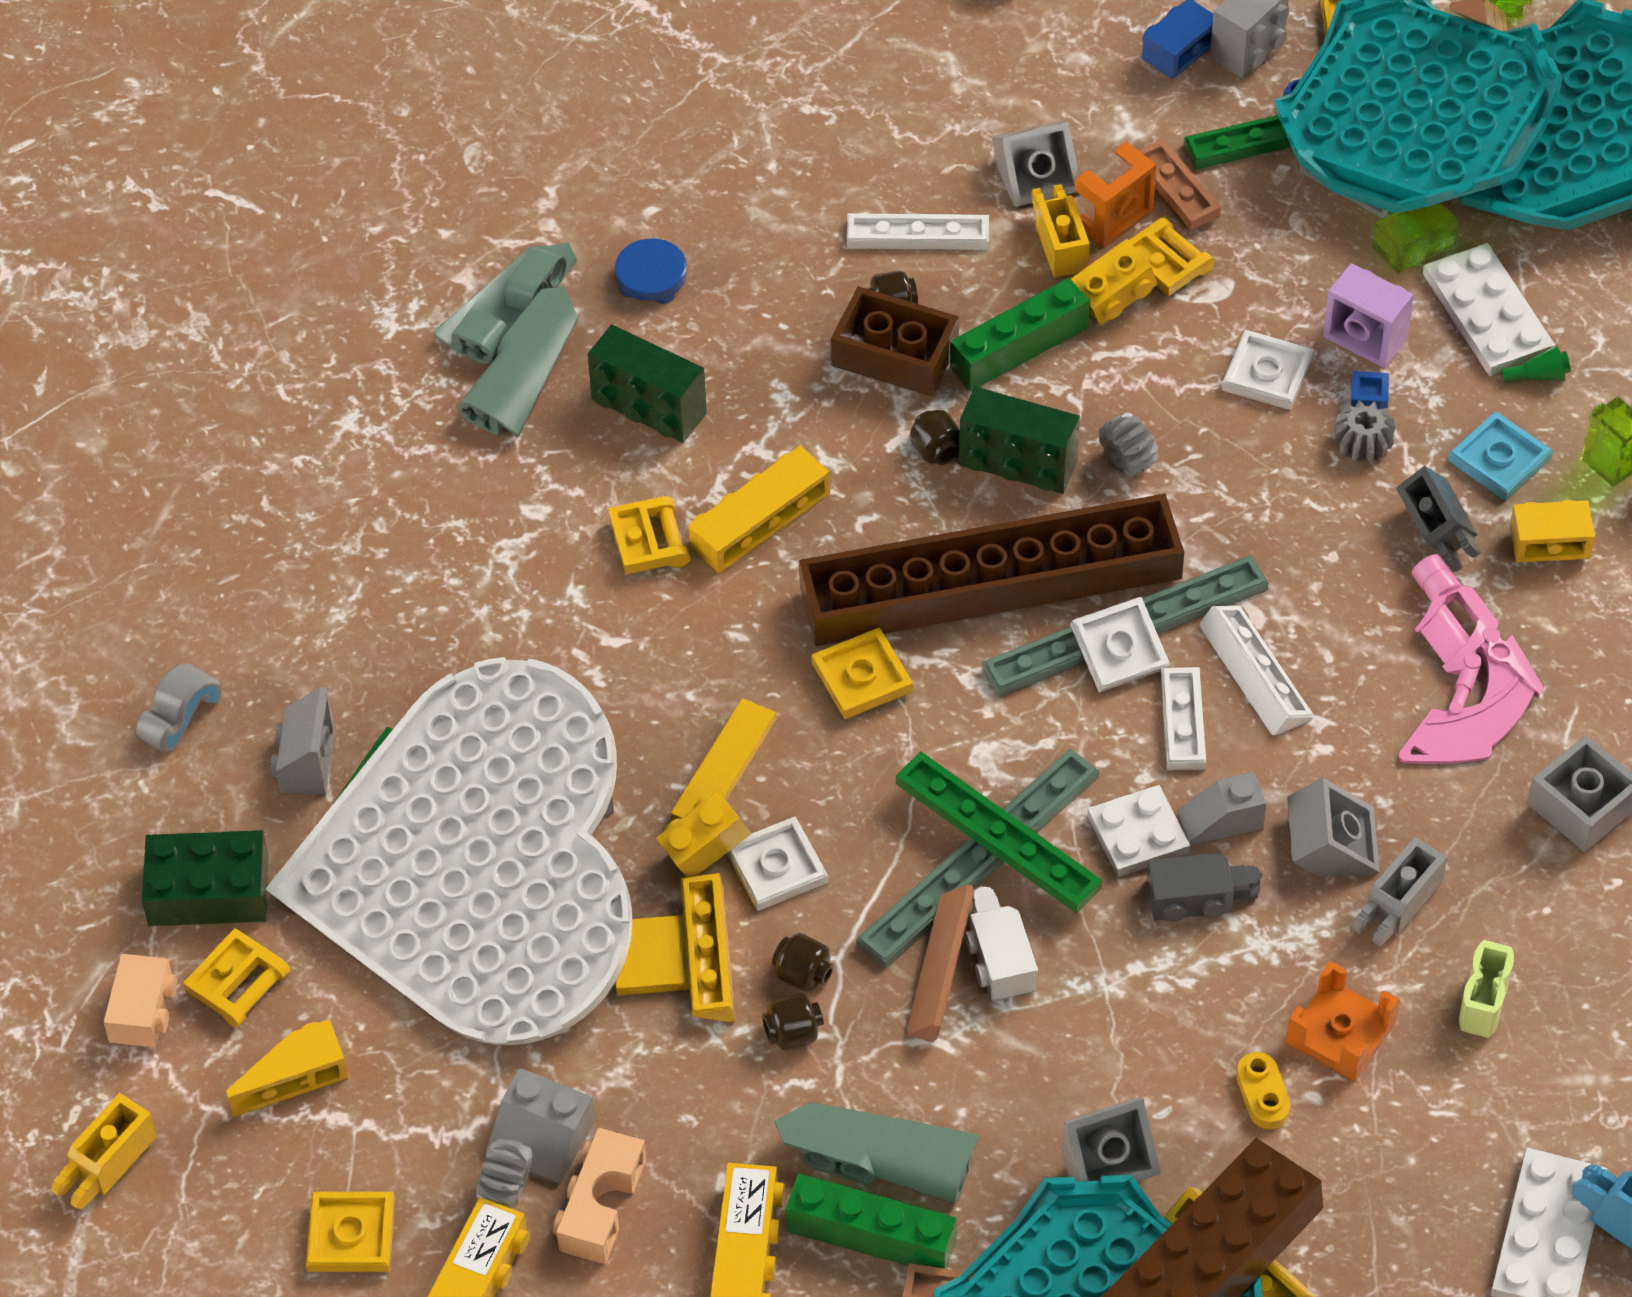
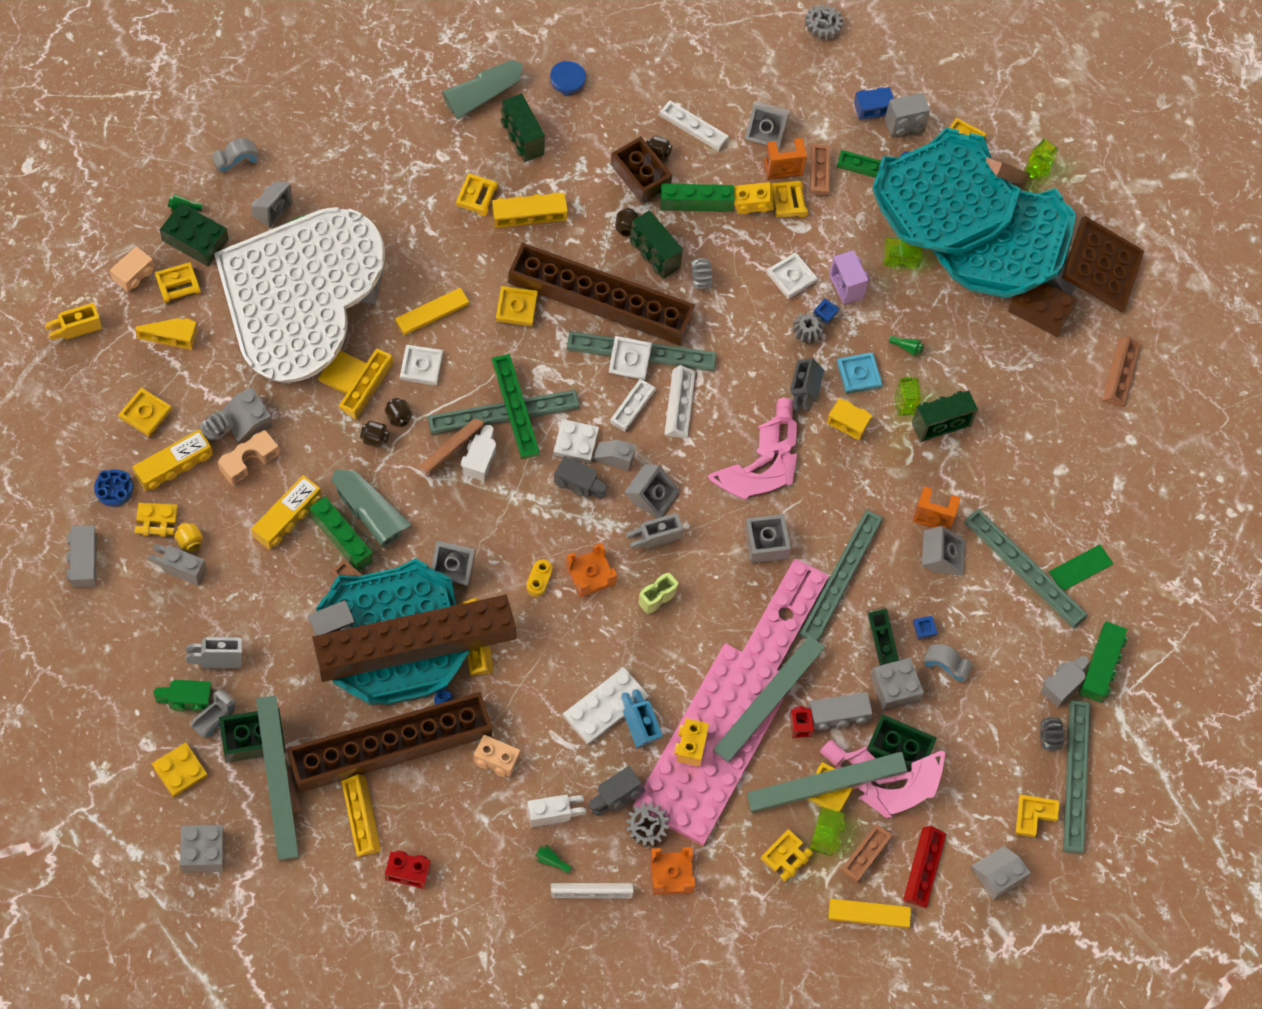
camera: 25 degrees right, 10 degrees up
(130, 843) = (176, 200): none -> green cone
(488, 316) = (486, 57): sand green panel -> none
(703, 834) = (397, 335): yellow brick -> none
(1061, 232) = (750, 161): yellow hinge -> none
(1487, 308) = (909, 305): white plate -> none

